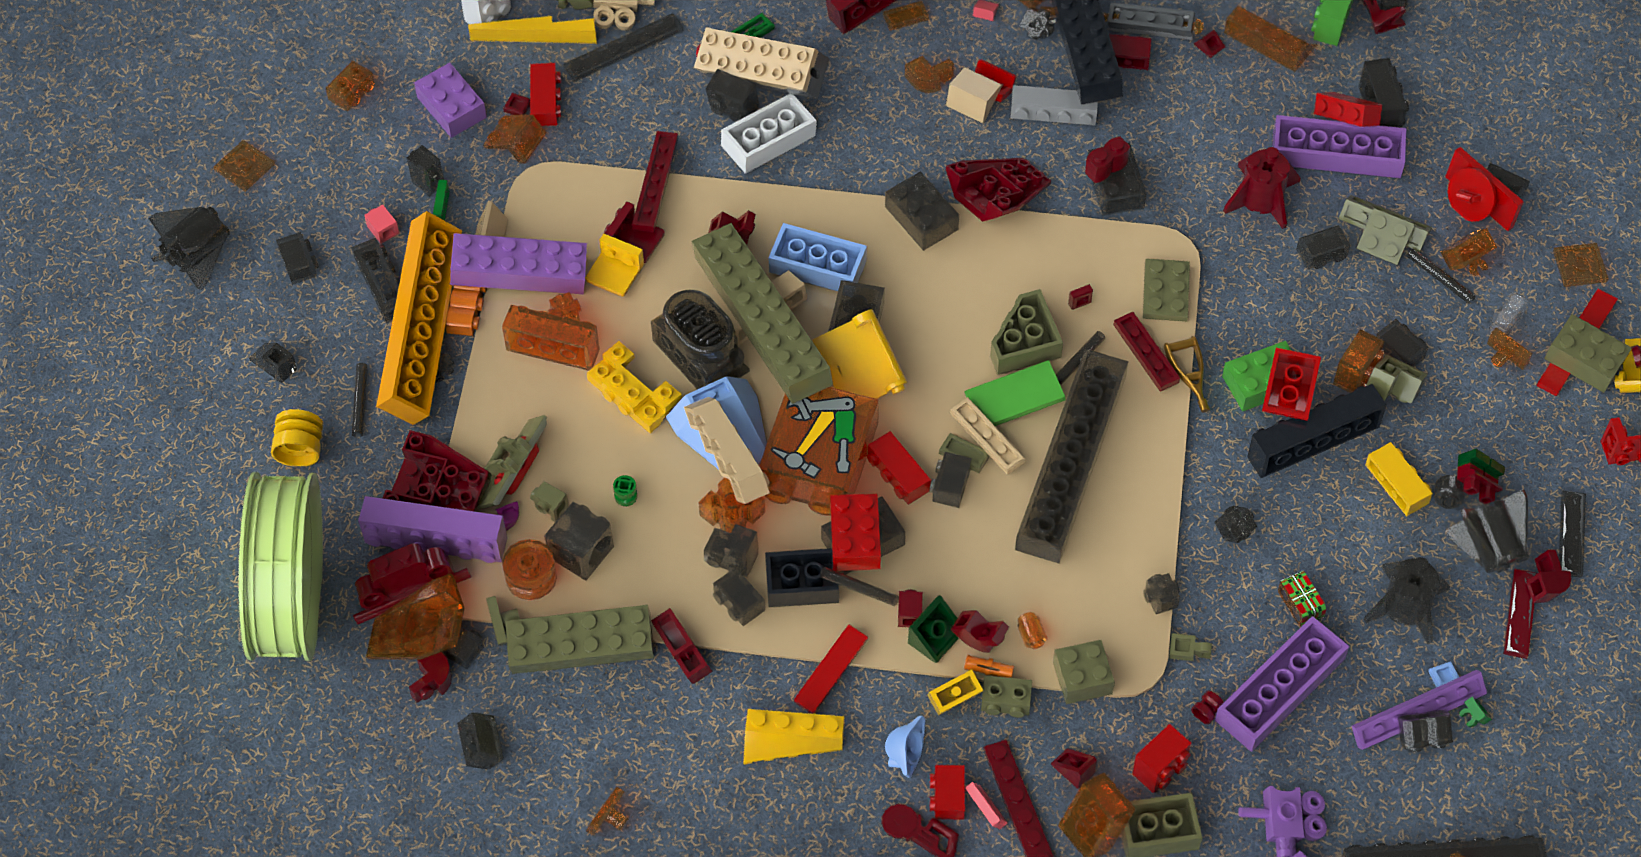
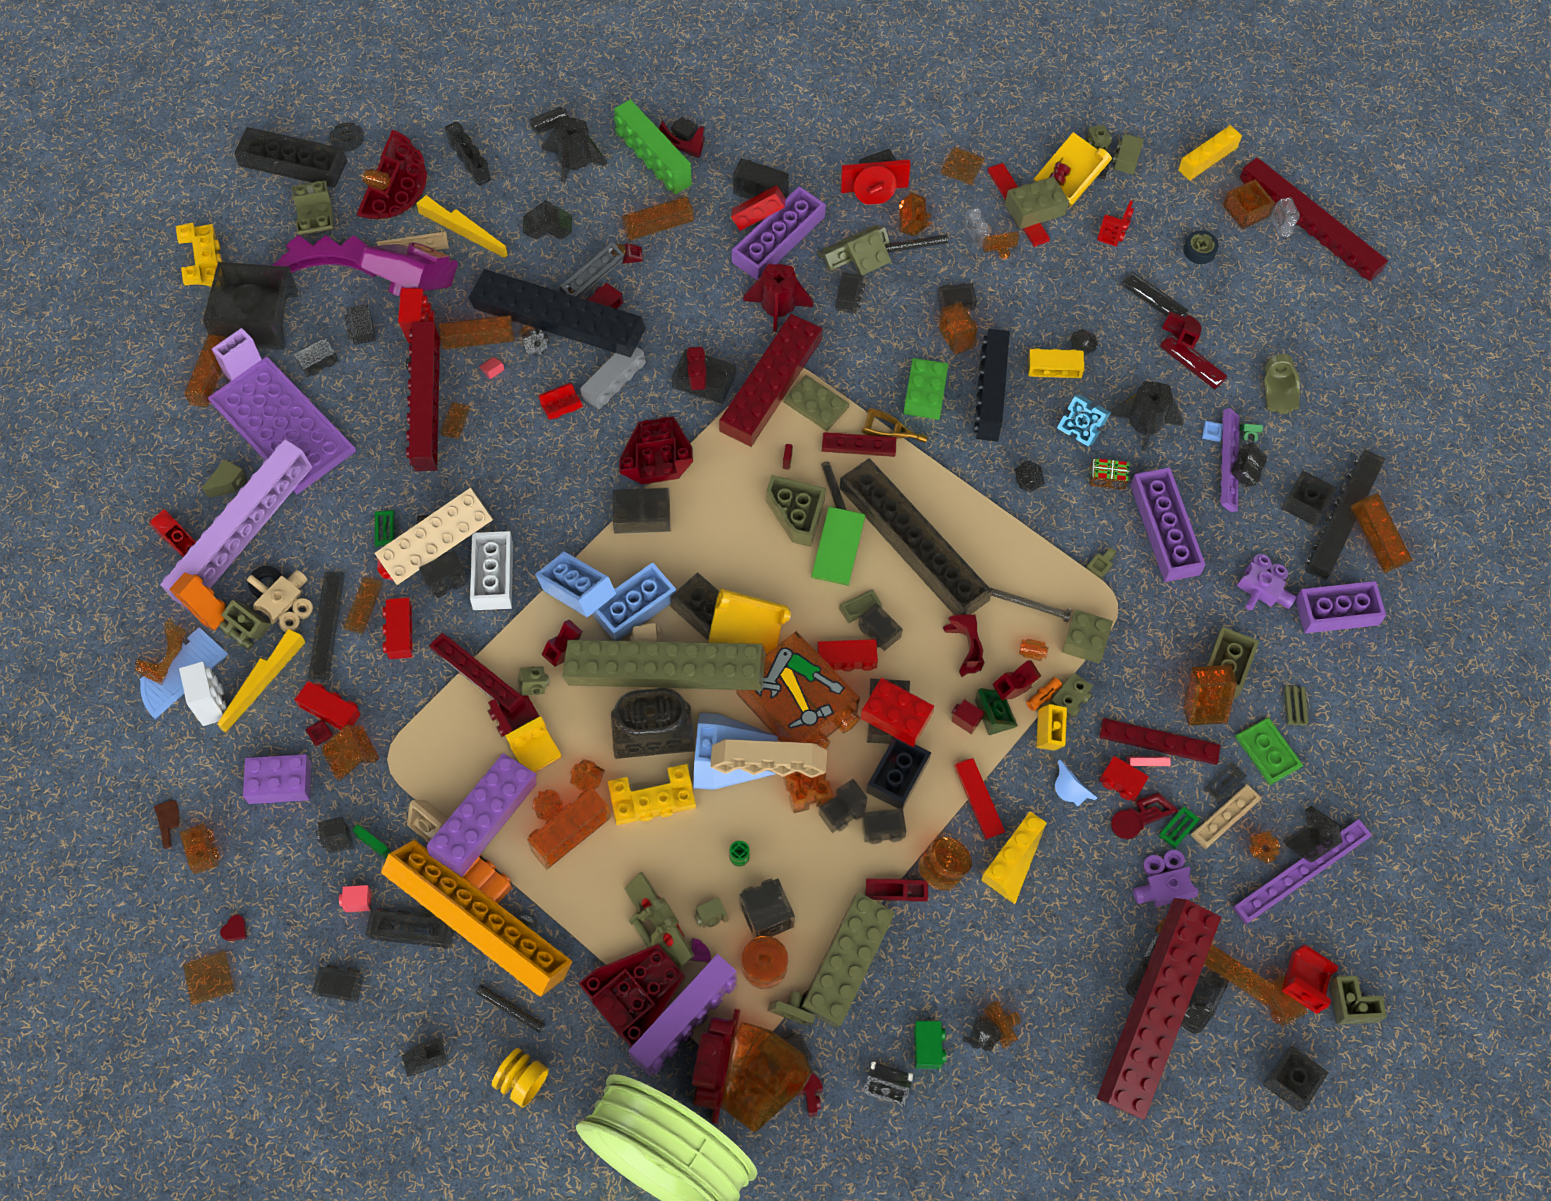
camera: 60 degrees left, 5 degrees up
(190, 240) = (261, 1062): clear smoke brick -> none
(297, 156) = (234, 929): none -> dark red tile
(363, 50) = (168, 819): none -> copper piece
(543, 758) = (928, 1045): none -> green brick
(586, 798) = (984, 1033): none -> clear smoke helmet
(614, 324) = (586, 775): none -> clear orange brick
(658, 99) = (398, 628): none -> red brick
(663, 62) = (363, 605): none -> clear orange tile
(677, 226) = (532, 680): none -> olive brick
(734, 669) = (945, 863): none -> clear orange wheel
(794, 198) = (575, 584): none -> light blue brick
(859, 586) = (937, 735): clear smoke piece -> none
(928, 78) = (521, 440): clear orange brick -> none
(972, 94) = (565, 418): tan slope -> none
(977, 580) = (968, 626): none -> dark red animal
(987, 436) = (860, 582): tan tile -> none
(1075, 766) = (1151, 686): dark red slope -> none
(1082, 596) = (1032, 604): none -> clear smoke bar
(1157, 234) = (770, 380): none -> dark red brick
(1162, 593) = (1057, 551): clear smoke brick -> none
(1162, 759) = (1182, 629): red brick -> none
(1207, 707) = (1155, 579): dark red wheel -> none
(1291, 384) = (959, 373): red slope -> none
(1343, 536) = (1083, 420): none -> medium azure brick
(1398, 379) = (986, 315): olive brick -> none
(1431, 810) = (1309, 498): none -> clear smoke brick
(1479, 475) = (1086, 318): dark red hips -> none
(1495, 533) = (1137, 335): clear smoke brick -> none
(1561, 713) = (1281, 384): none -> olive hair

